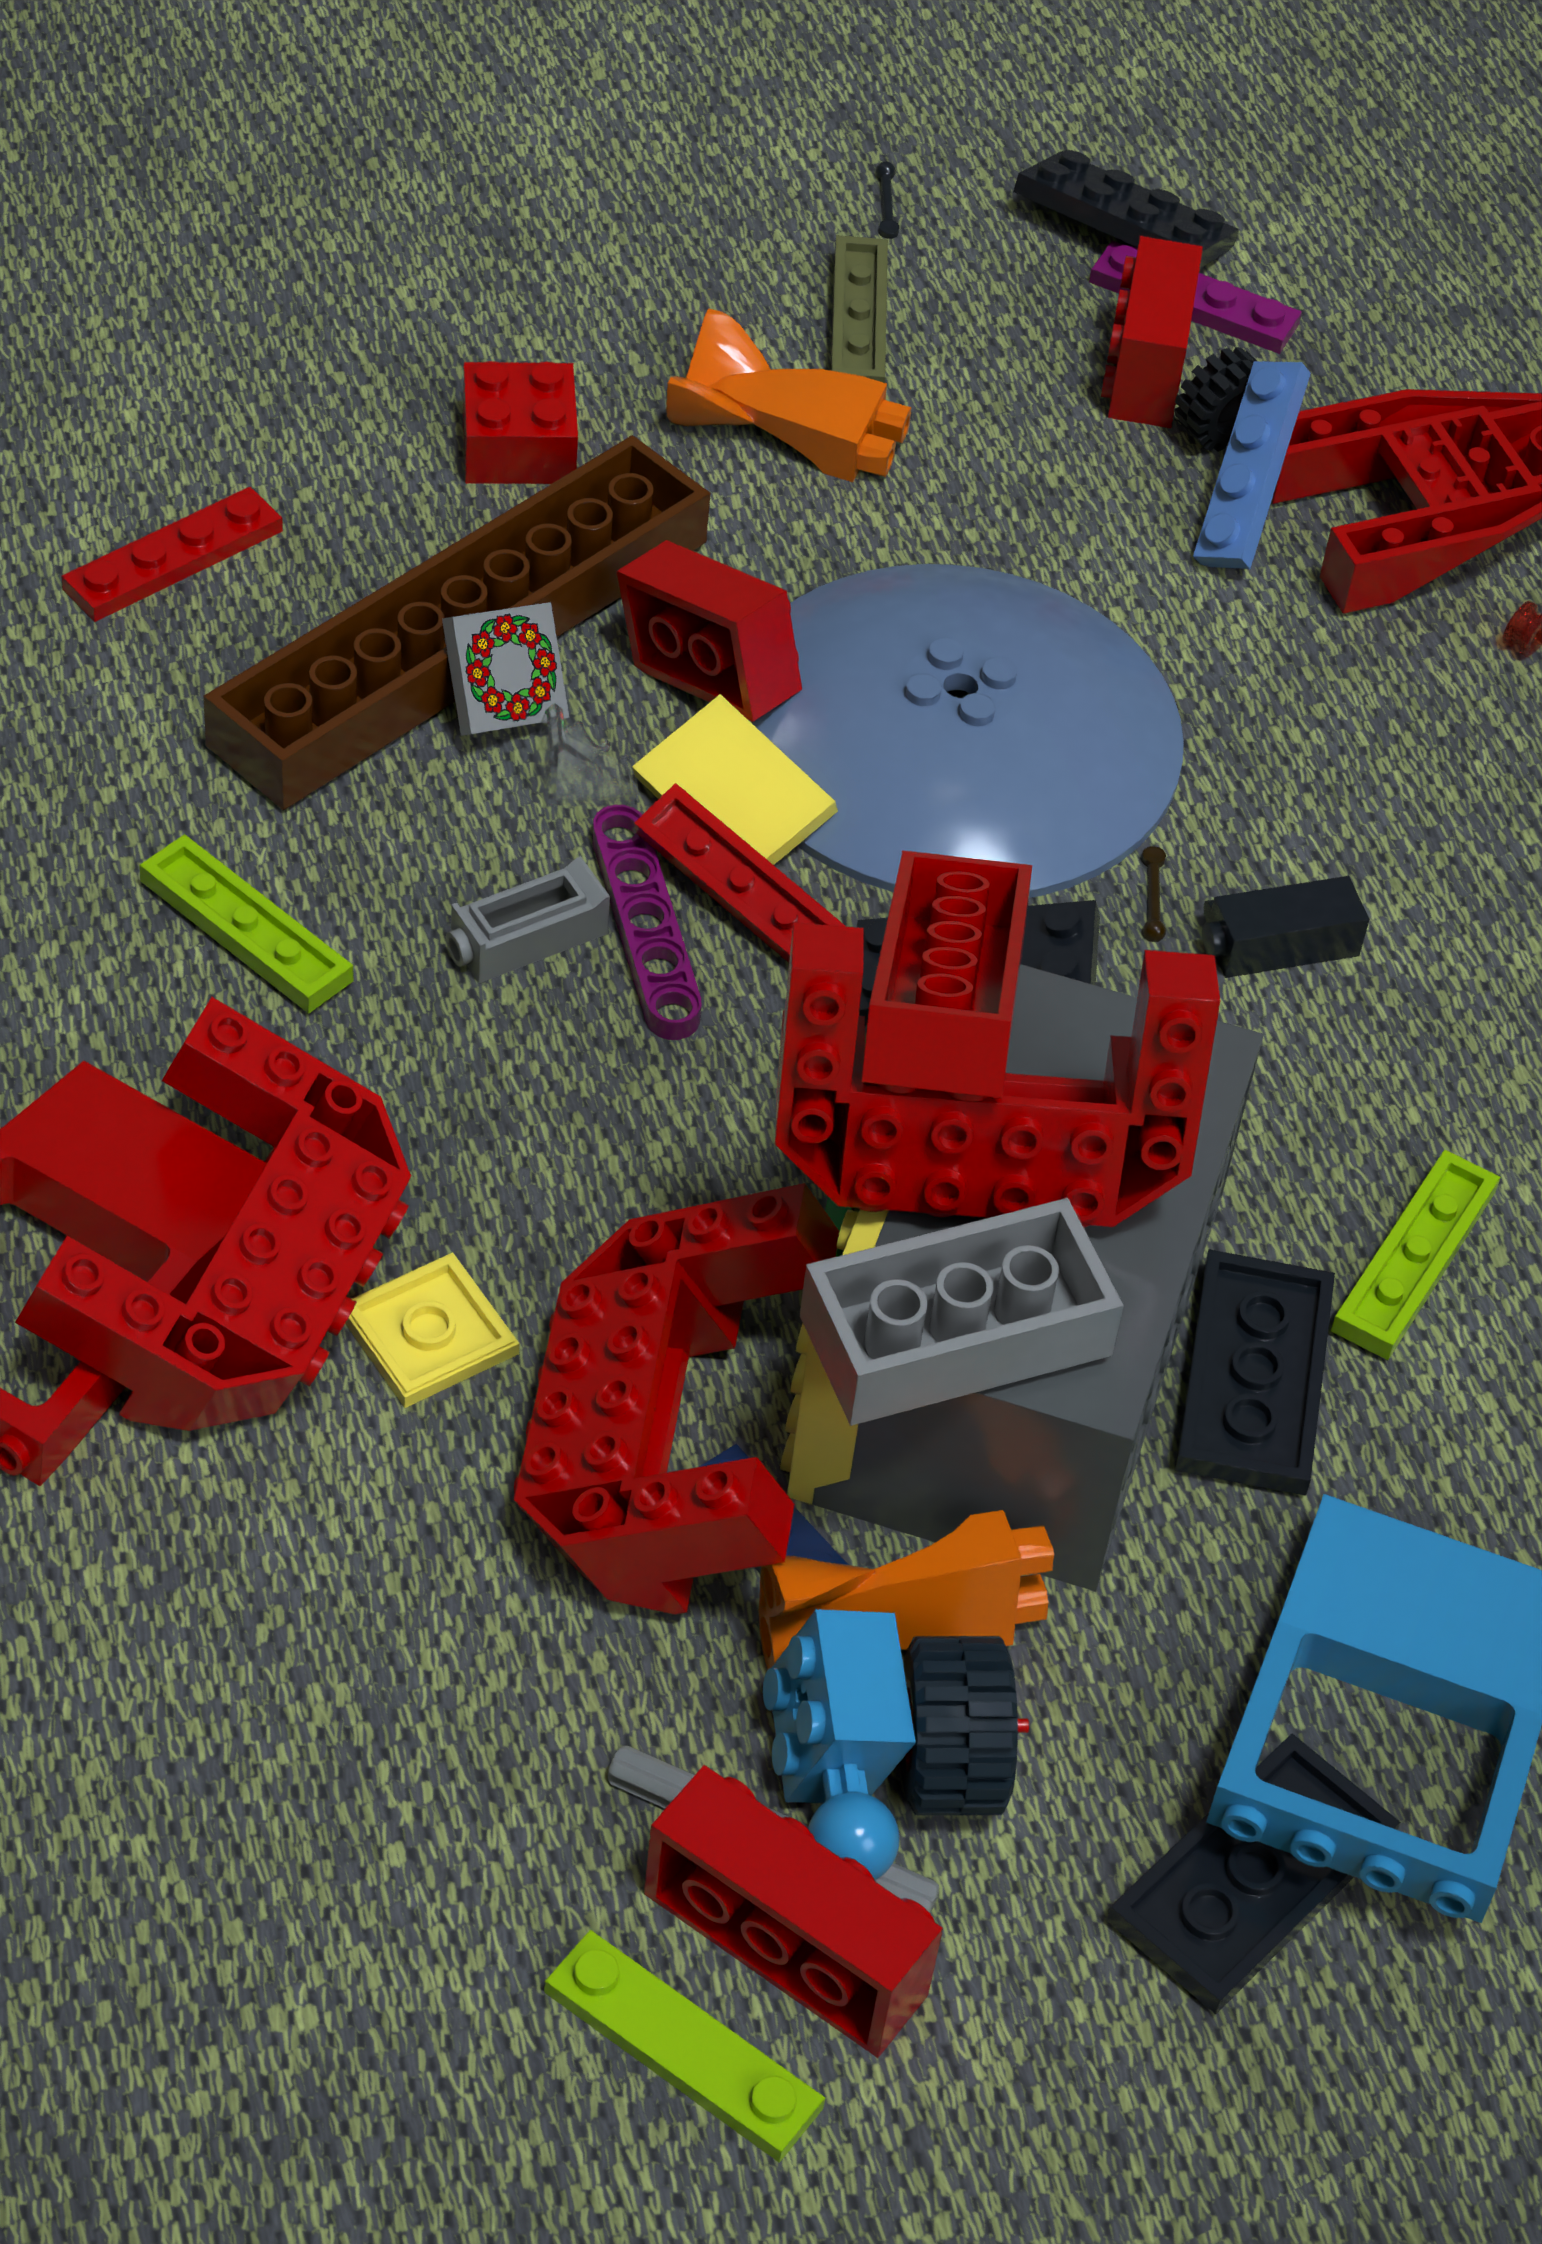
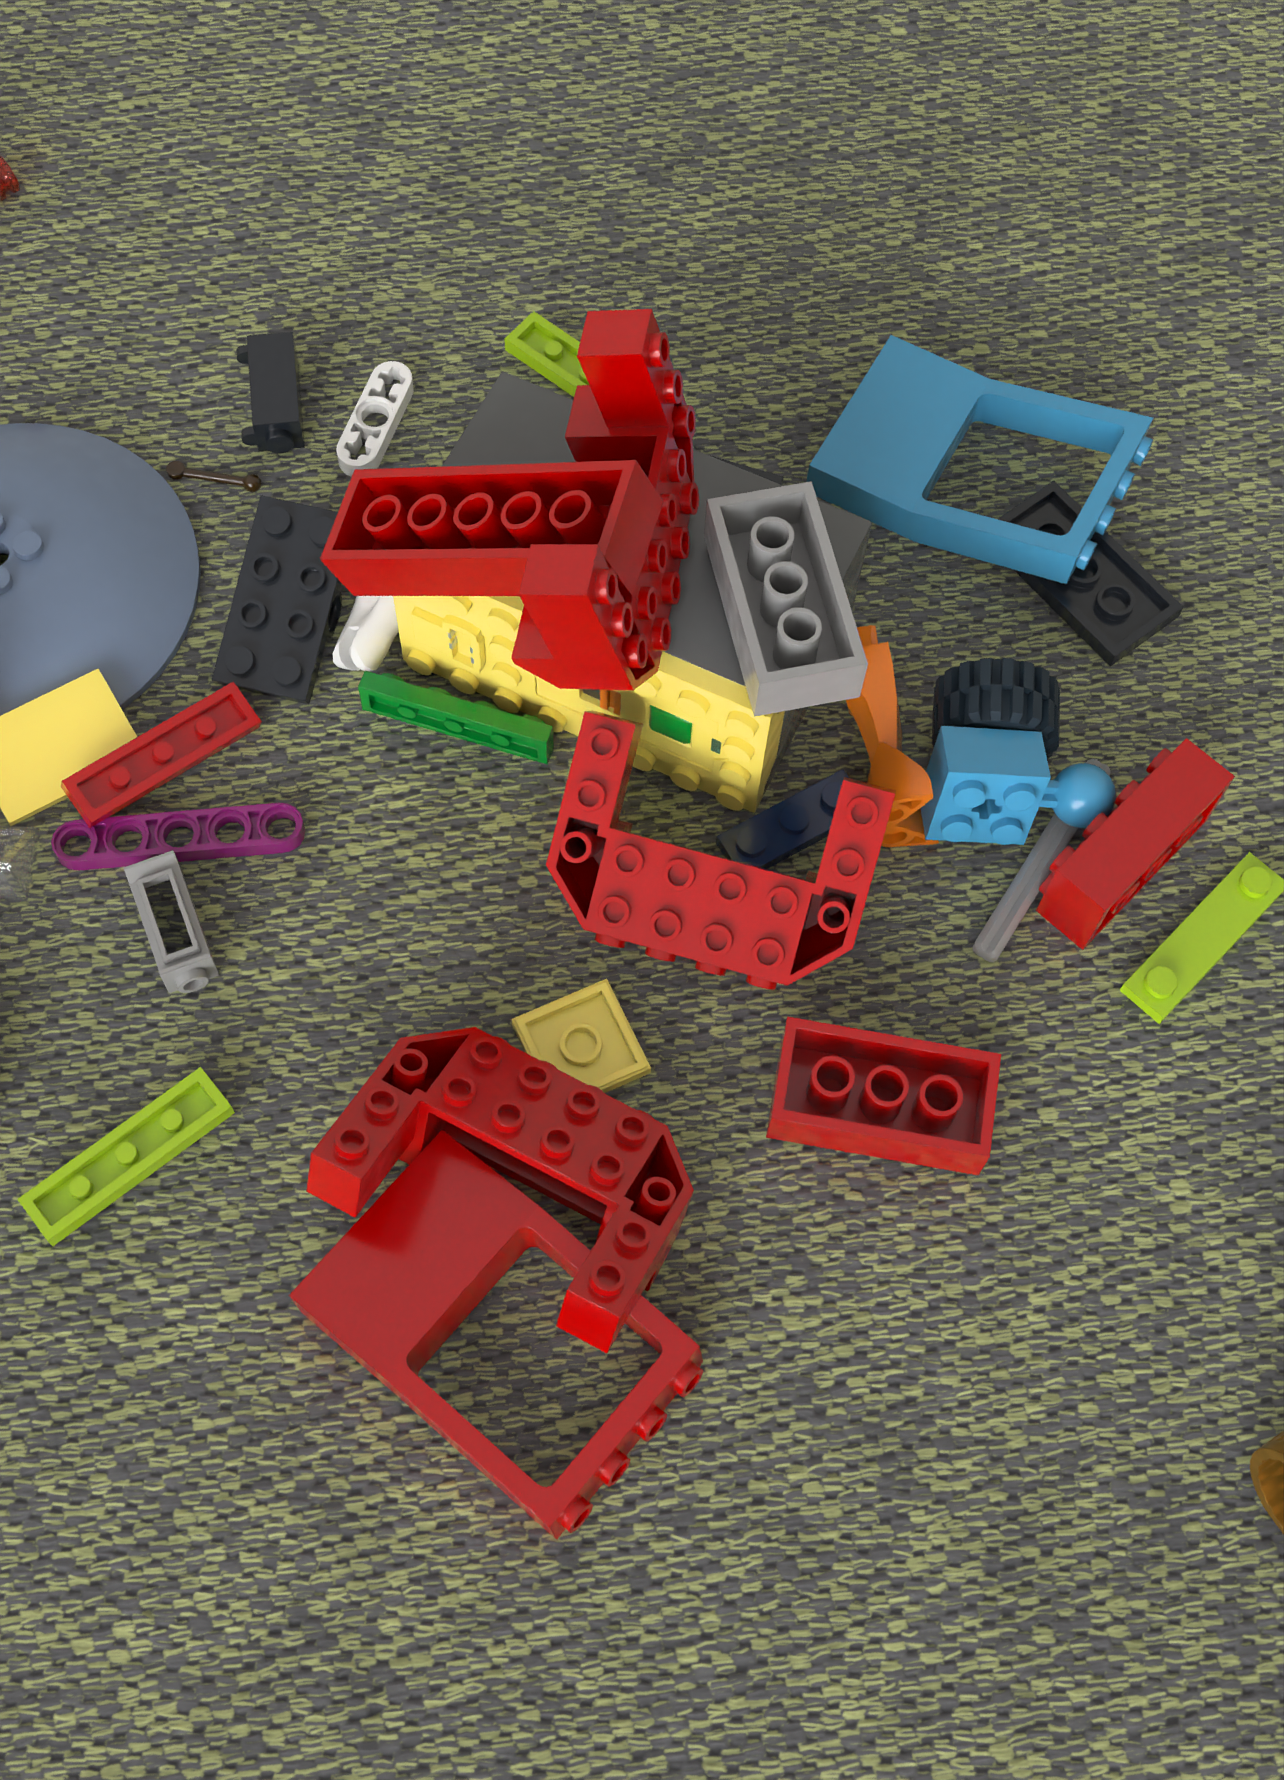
camera: 80 degrees left, 15 degrees up
(382, 1630) = (884, 1096): none -> red brick
(1304, 1026) = (374, 401): none -> white beam

